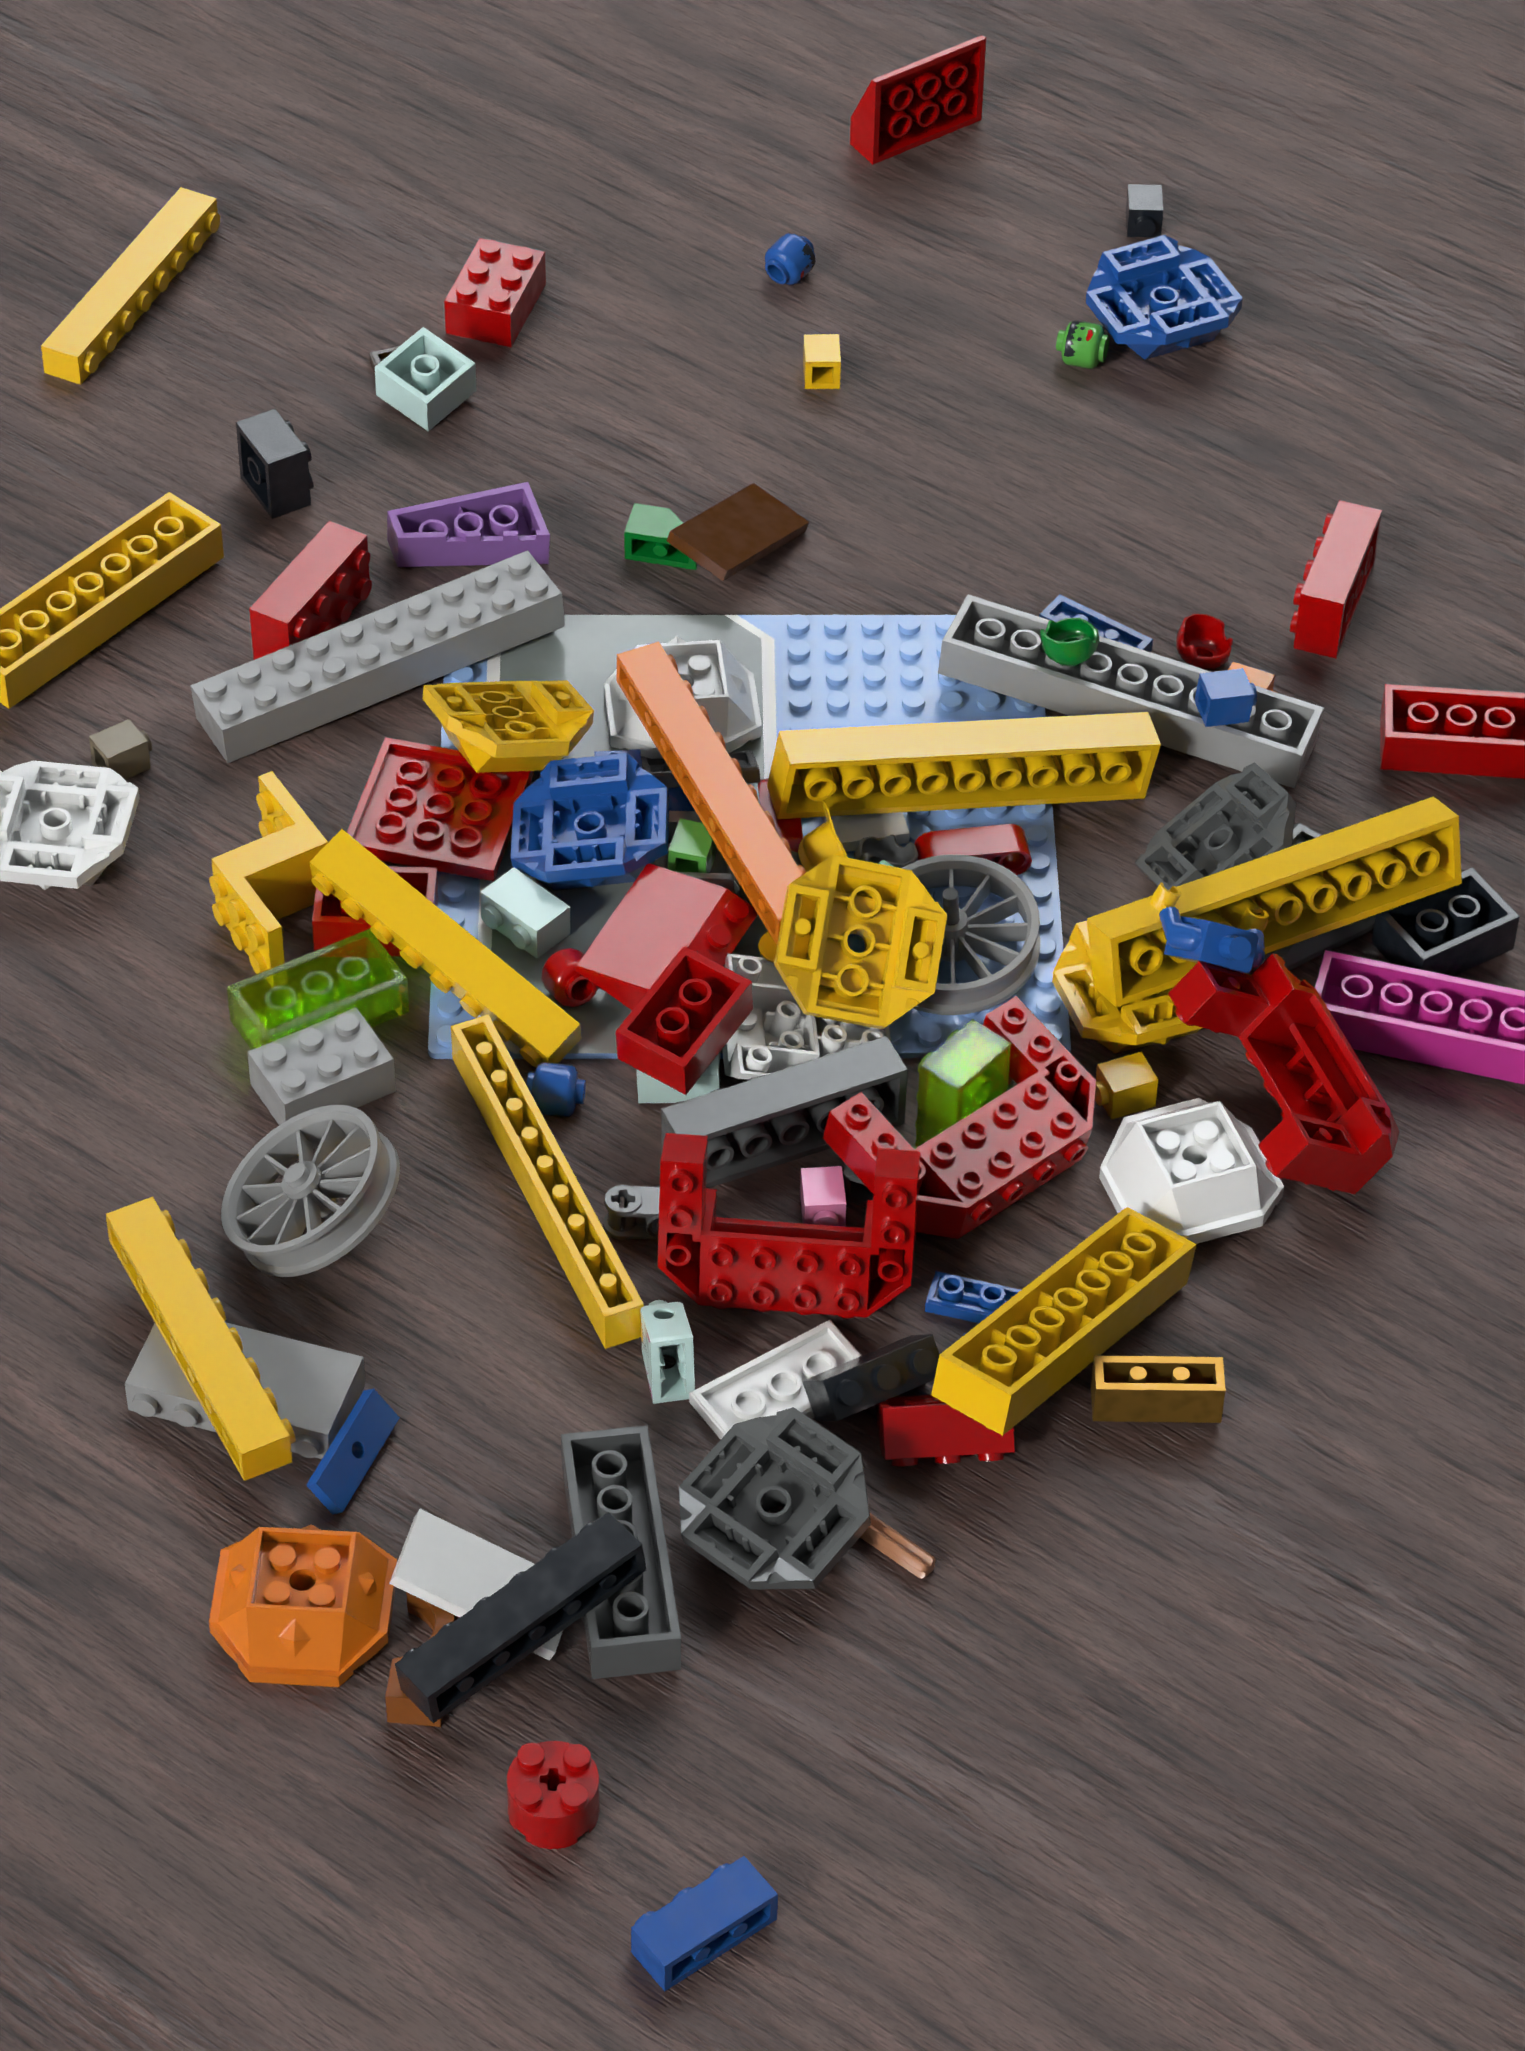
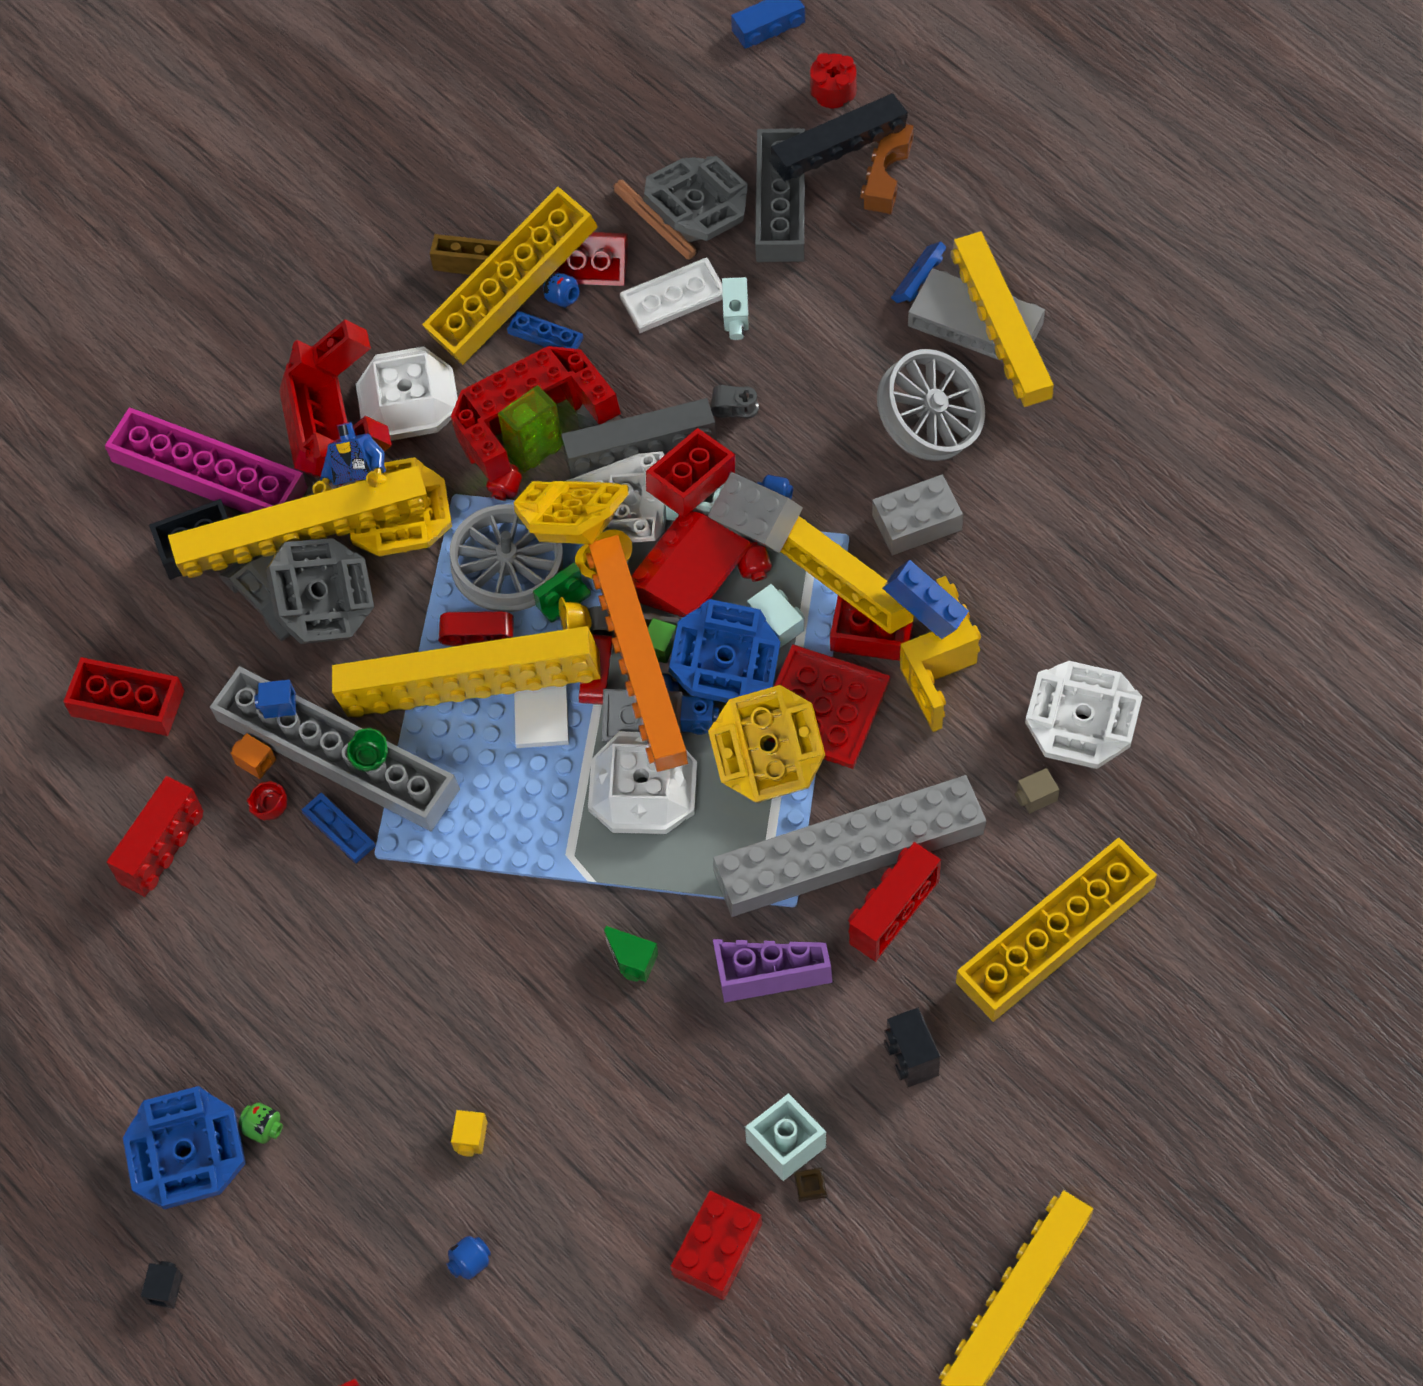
camera: 165 degrees left, 15 degrees up
(292, 844) = (925, 599): none -> blue brick
(297, 1634) = (950, 196): orange piece -> none
(318, 987) = (933, 548): clear neon green brick -> none
(456, 1568) = (857, 178): white tile -> none
(547, 1181) = (790, 422): yellow brick -> none
(572, 990) = (755, 512): none -> light grey brick
(737, 531) = (572, 939): reddish brown tile -> none
(785, 1263) = (605, 331): red wedge -> none
(823, 1196) = (628, 397): bright pink brick -> none
(872, 1378) = (623, 275): black brick -> none
(876, 849) = (533, 620): dark grey hair -> none
(1126, 1085) = (430, 454): yellow brick -> none

